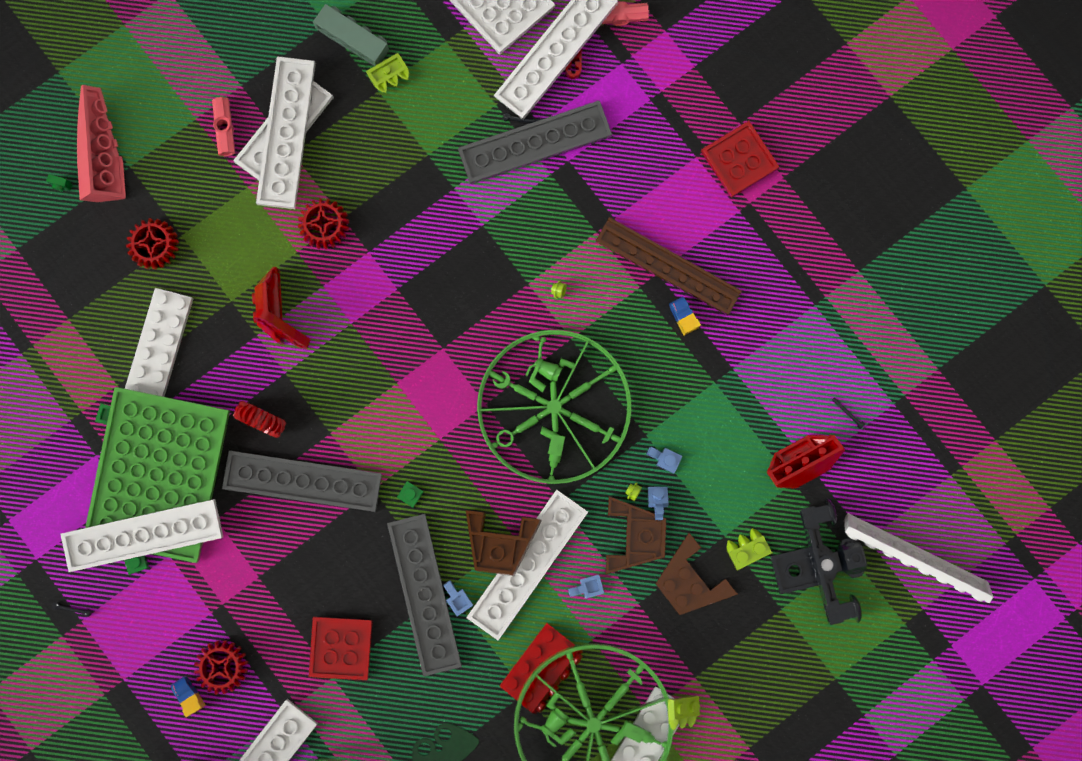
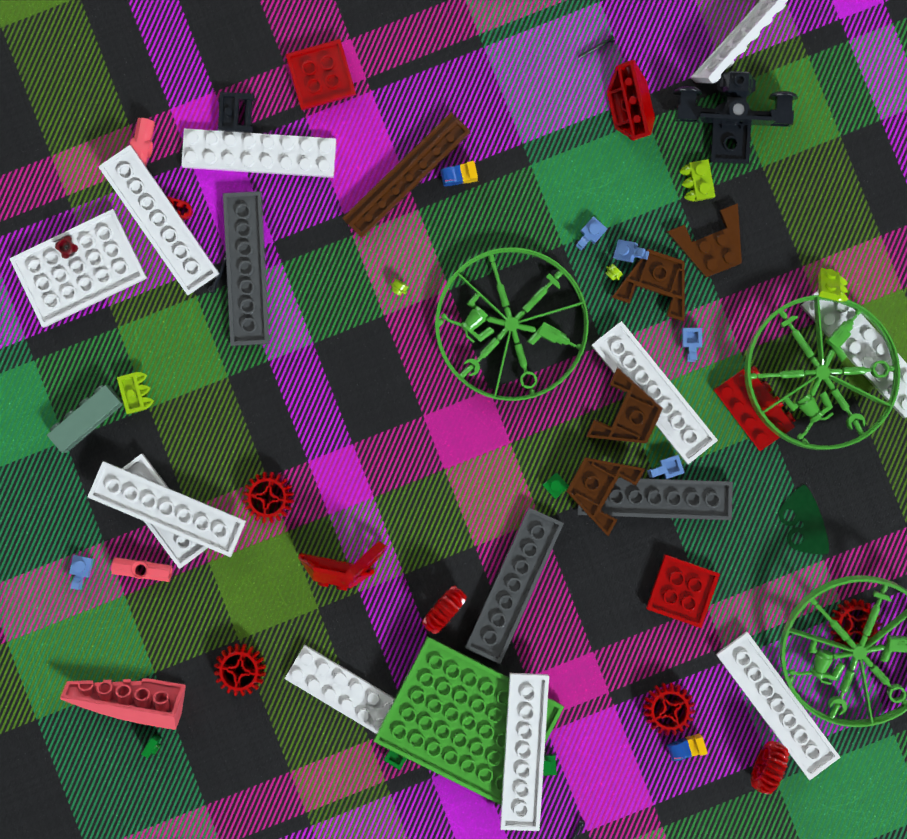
camera: 70 degrees left, 5 degrees up
(210, 71) = (81, 568): none -> medium blue plate
(418, 529) = (593, 485): none -> reddish brown wing
(648, 123) = (259, 153): none -> white plate
(678, 85) = (229, 112): none -> black plate

